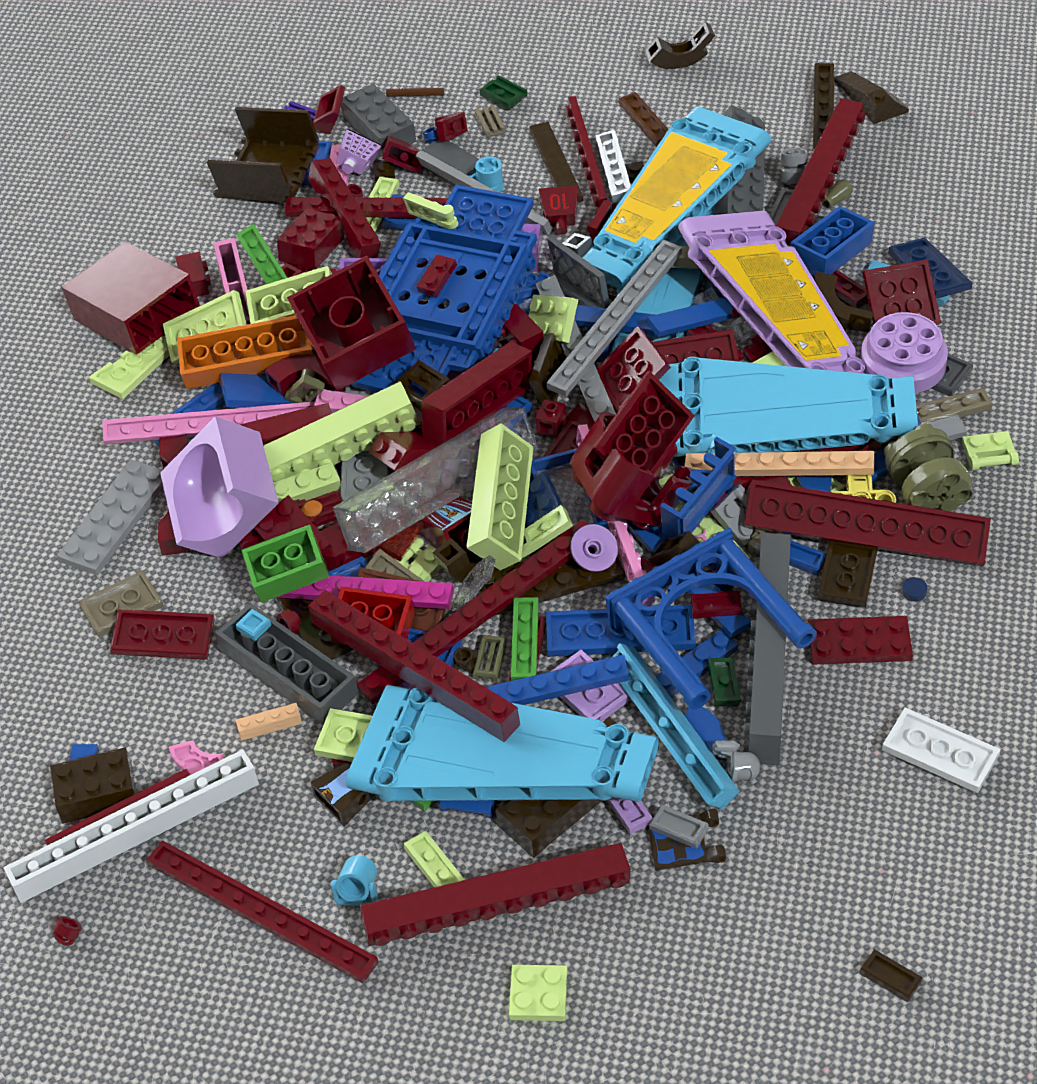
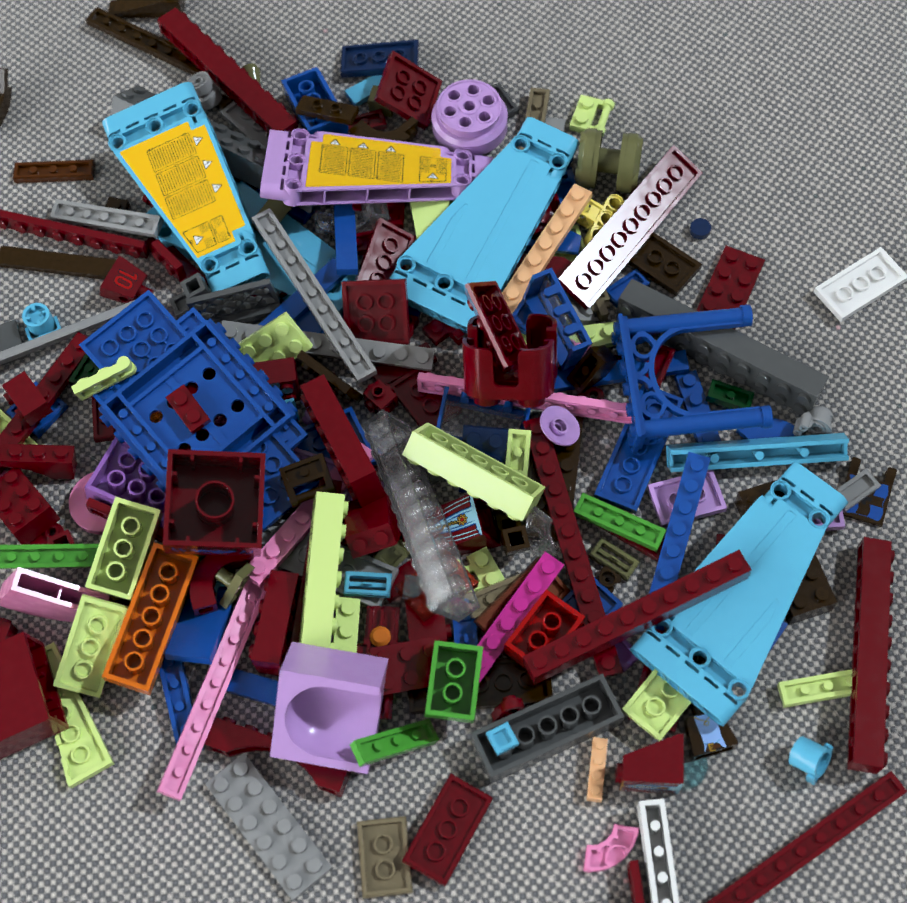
camera: 65 degrees left, 15 degrees up
(215, 554) = (394, 742): none -> bright green plate
(287, 754) = (653, 767): none -> dark red slope
(303, 801) = (695, 772): none -> clear light blue tile
(351, 466) = (367, 593): none -> medium azure tile
(400, 185) = (27, 398): none -> dark red brick
(822, 243) = (327, 110): none -> dark brown plate

